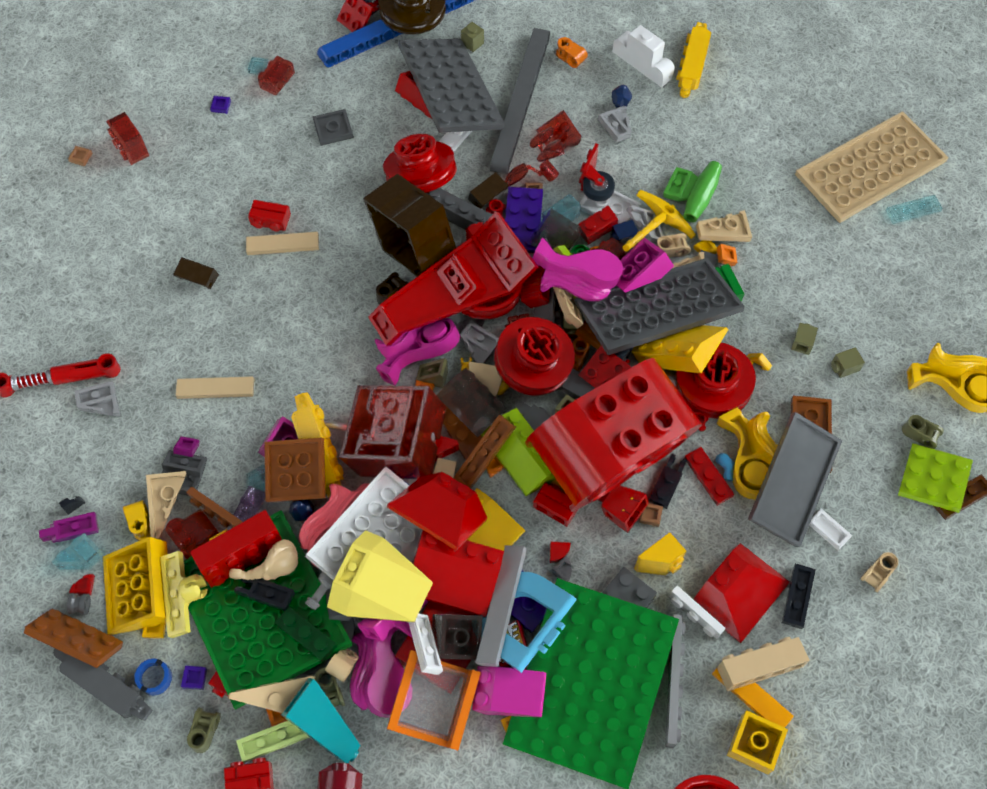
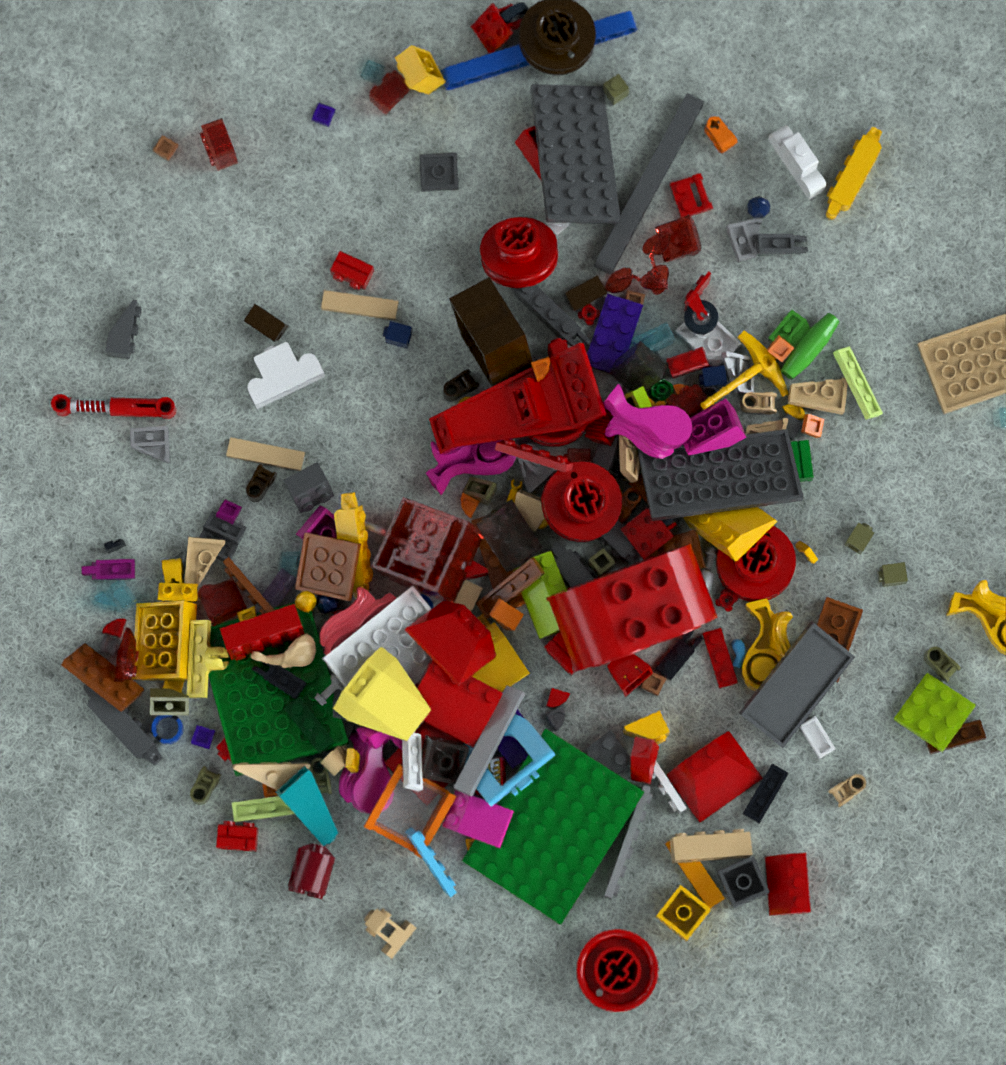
camera: 15 degrees right, 15 degrees up
(56, 312) = (121, 336): none -> dark grey slope
(96, 610) = (126, 657): none -> clear red slope
(137, 532) = (177, 592): none -> yellow hinge
(148, 648) = (168, 702): none -> olive slope
(214, 411) = (262, 480): none -> dark brown piece
(219, 313) = (282, 374): none -> white brick
(262, 403) = (309, 488): none -> dark grey brick
(279, 511) = (305, 601): none -> yellow piece
(297, 50) = (419, 70): none -> yellow brick
(323, 258) = (397, 334): none -> dark blue brick
(360, 660) = (352, 760): none -> yellow tile
(464, 246) = (541, 368): none -> orange tile
(470, 319) = (540, 457): none -> red plate
(474, 756) = (427, 854): none -> medium azure plate
(487, 478) = (506, 615): none -> orange slope
(555, 105) = (685, 199): none -> red plate
(649, 120) = (780, 244): none -> dark grey hinge
(666, 587) = (643, 759): none -> red slope
(677, 196) = (780, 348): none -> orange tile
(755, 213) = (857, 383): none -> yellowish green tile
(808, 693) = (742, 882): none -> dark grey brick
(855, 684) = (787, 884): none -> red slope

